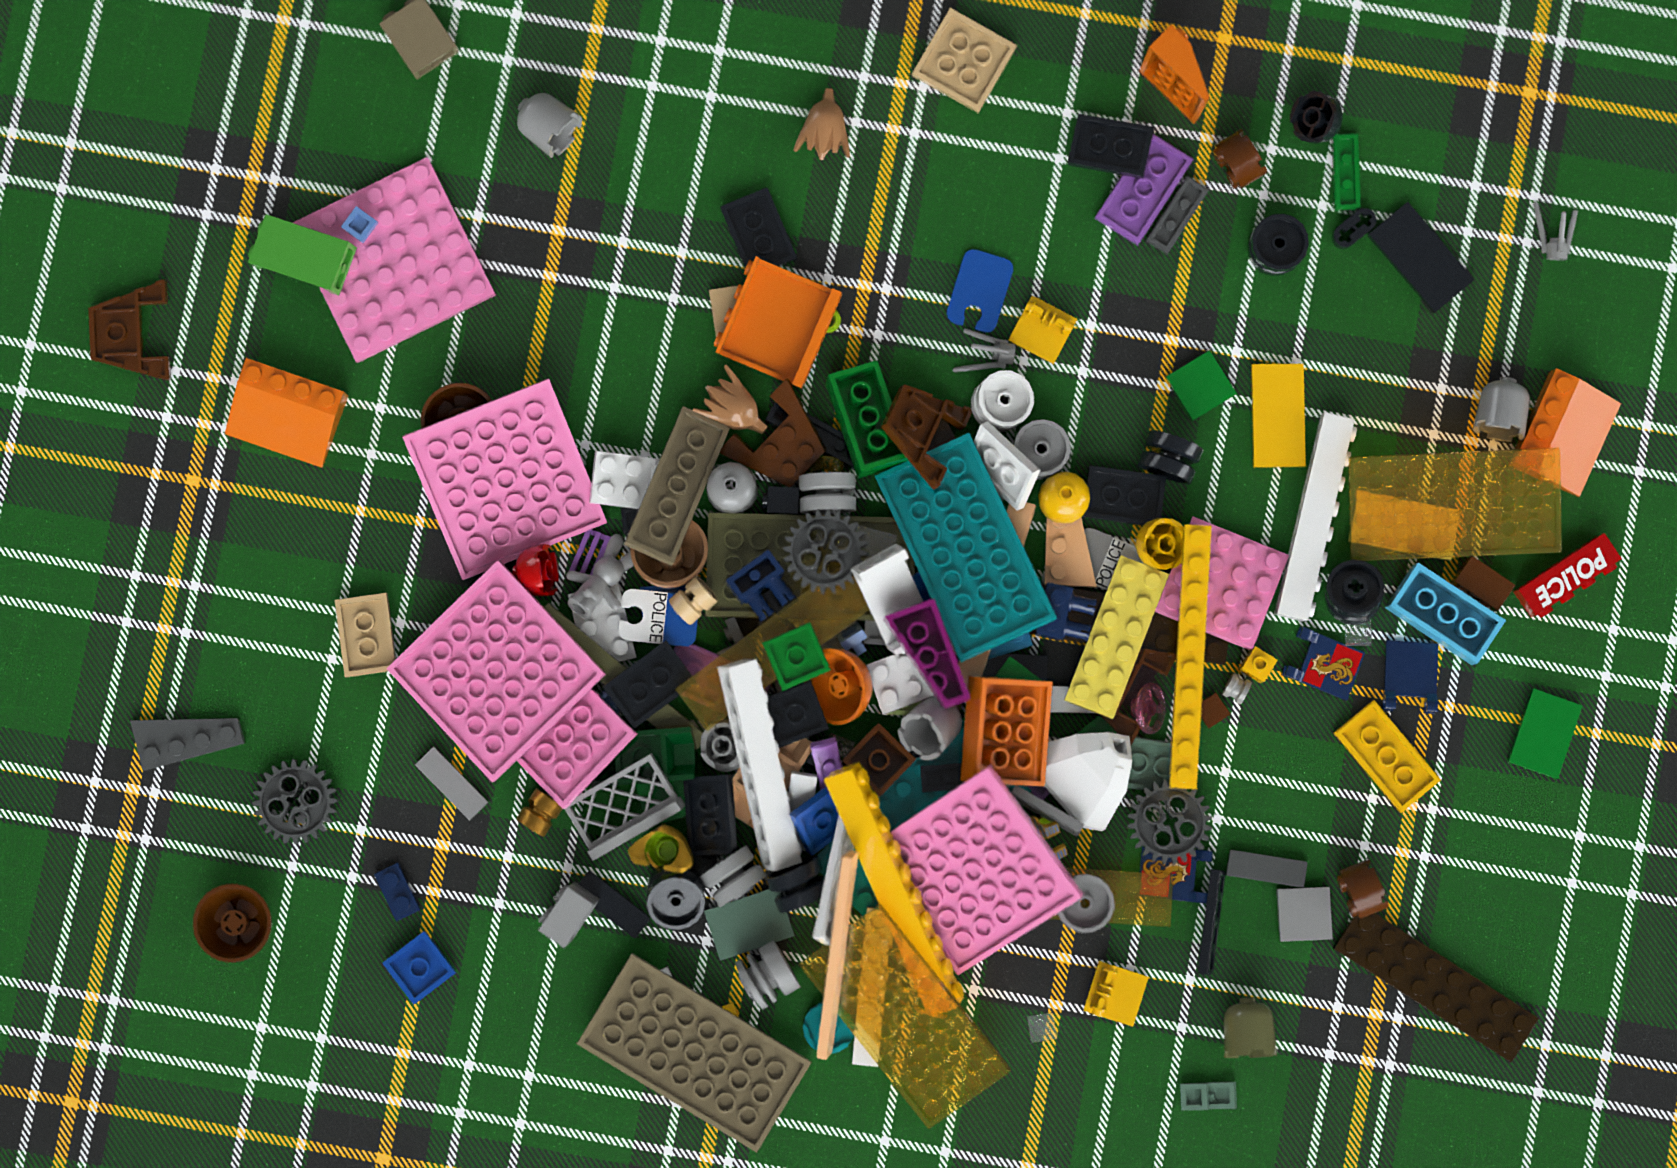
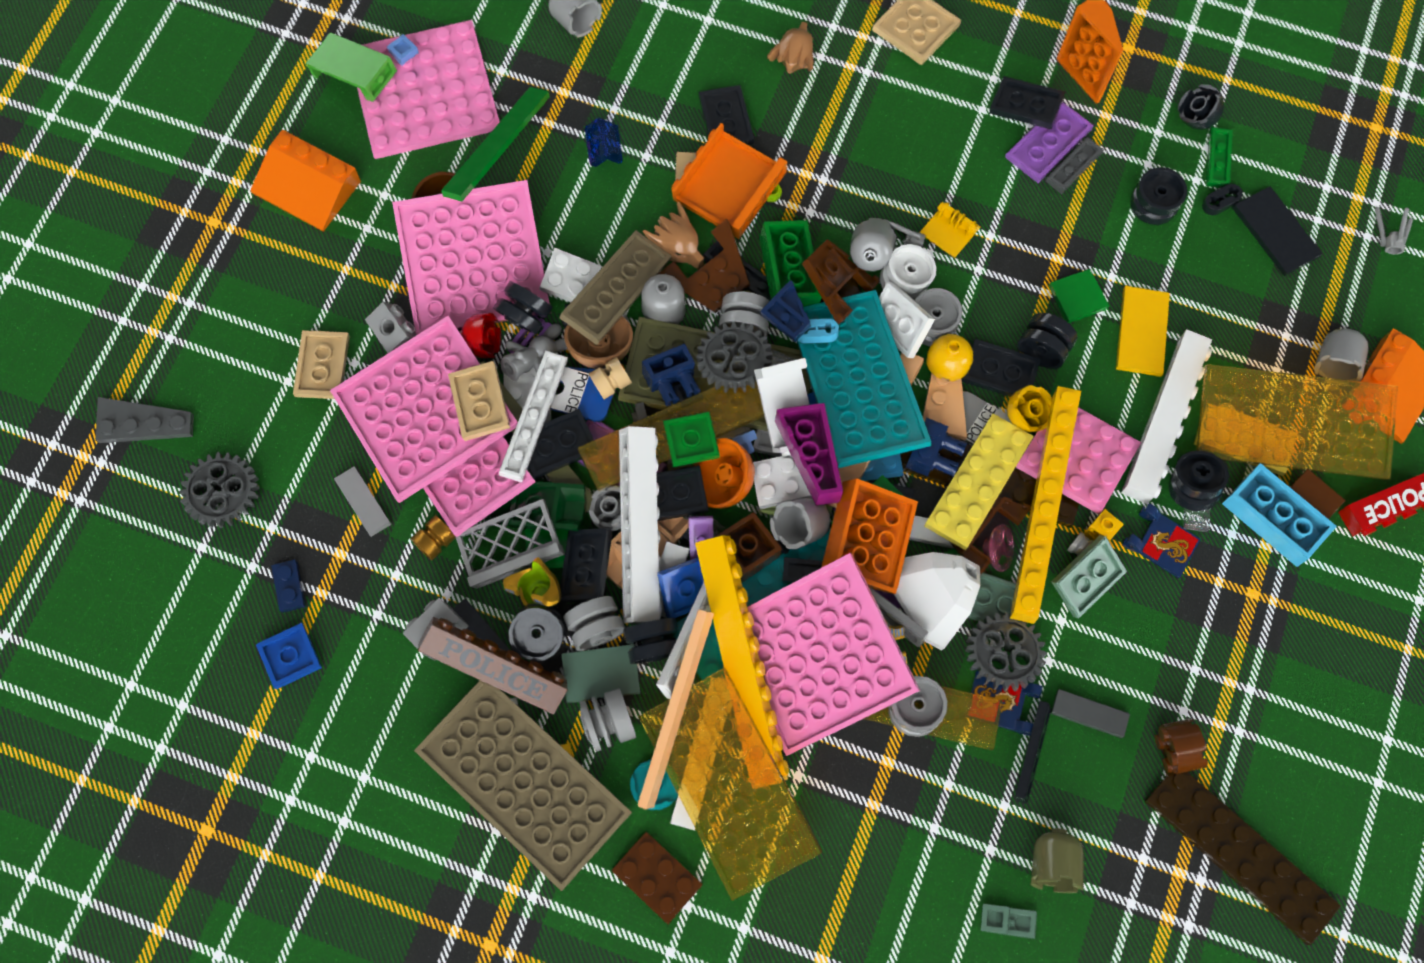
camera: 10 degrees right, 15 degrees down
(117, 332) = (187, 99): reddish brown wing -> none
(217, 924) = (121, 571): reddish brown piece -> none
(422, 578) = (383, 321): none -> light grey brick
(500, 330) = (495, 144): none -> green tile
(557, 659) = (479, 401): none -> tan plate
(578, 535) = (522, 308): none -> black wheel
(619, 660) = (533, 416): none -> white tile
(620, 293) = (603, 142): none -> clear blue panel
(639, 944) = (493, 665): none -> brick
(781, 500) = (704, 317): black brick -> none
(849, 1120) = (657, 878): none -> reddish brown plate
(875, 489) = (787, 312): none -> dark blue wing
(910, 494) = (817, 331): none -> medium azure beam
(956, 377) = (875, 238): none -> light grey cylinder
(982, 284) = (903, 187): blue piece -> none
(1041, 1027) = (857, 822): clear plate -> none
(1115, 993) = (932, 804): yellow hinge -> none
(1213, 710) = (1057, 563): reddish brown tile -> none
(1240, 160) = (1133, 127): reddish brown brick -> none
(1248, 722) = (1089, 576): none -> sand green tile
(1304, 914) = (1121, 763): light grey tile -> none
(1387, 756) = (1212, 633): yellow tile -> none
(1411, 673) = (1241, 562): dark blue flag -> none
(1544, 733) = (1361, 639): green tile -> none

